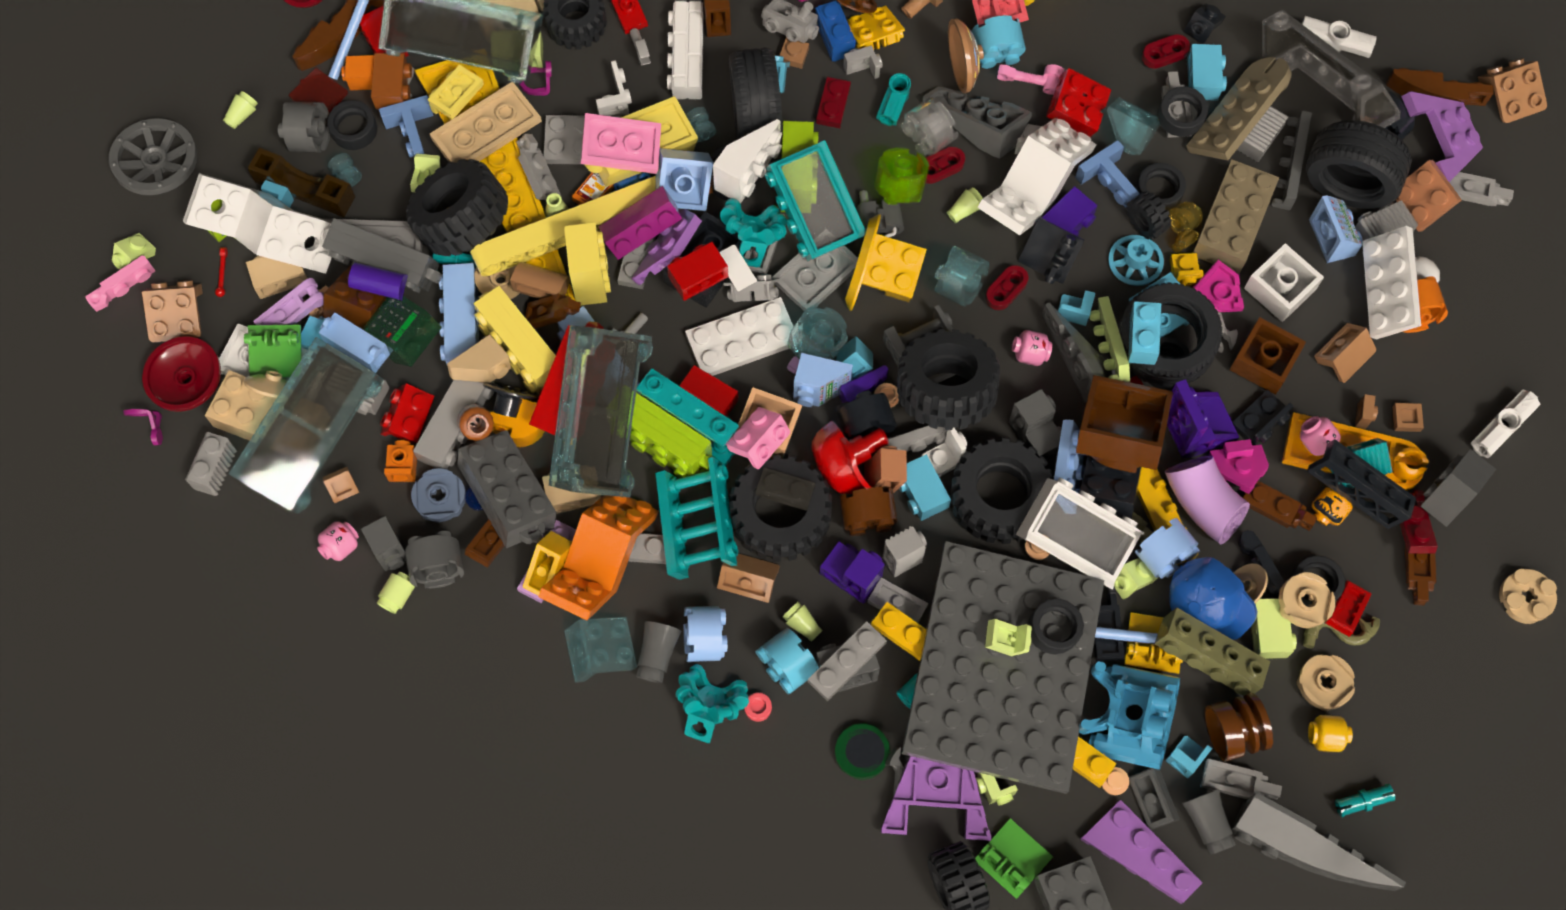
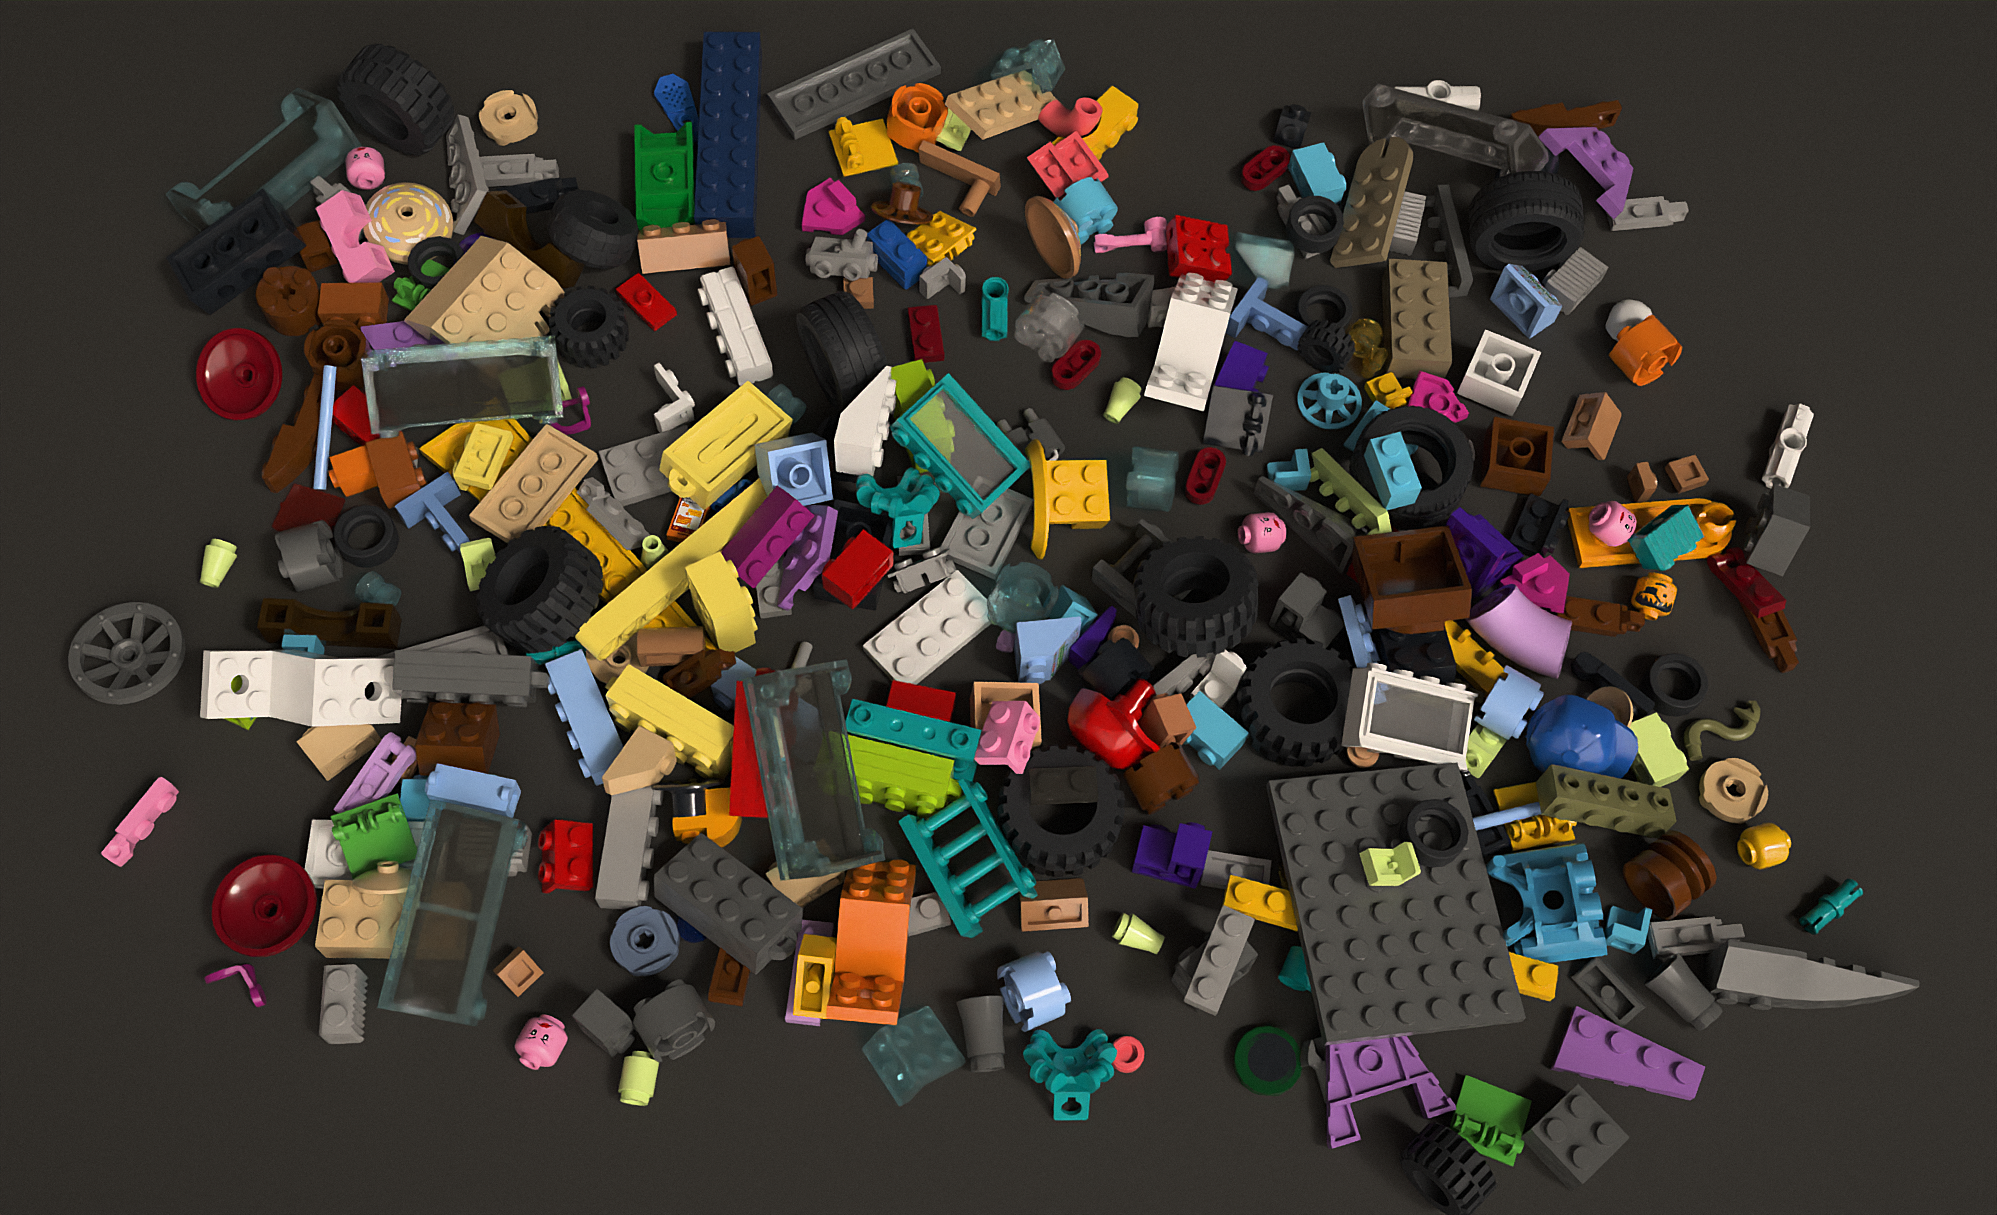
camera: 25 degrees left, 5 degrees down
(131, 249) = (139, 776): yellowish green bracket -> none
(172, 310) = (221, 832): medium nougat bracket -> none
(220, 291) = (272, 788): red hinge -> none
(377, 281) = (478, 707): dark purple brick -> none
(403, 329) = (527, 753): clear green slope -> none
(404, 469) = (587, 927): orange brick -> none
(481, 428) = (661, 836): dark orange head -> none
(620, 143) = (709, 452): bright pink plate -> none
(641, 47) = (681, 339): light grey bar -> none
(737, 268) = (904, 555): white sticker -> none
(787, 660) = (1143, 985): medium azure brick -> none
(901, 176) = (1040, 389): clear neon green brick -> none
(904, 551) = (1222, 808): light grey brick -> none
(988, 785) = (1434, 1050): yellowish green bracket -> none
(1116, 782) = (1566, 988): light nougat plate -> none
(1292, 606) = (1665, 715): tan plate -> none
(1349, 608) = (1721, 702): red plate -> none
(1368, 483) = (1690, 557): black fence -> none
(1391, 283) = (1613, 335): white plate -> none
(1428, 195) = (1608, 232): nougat plate -> none
(1516, 89) = (1641, 97): medium nougat bracket -> none
(1541, 588) = (1902, 609): tan plate -> none

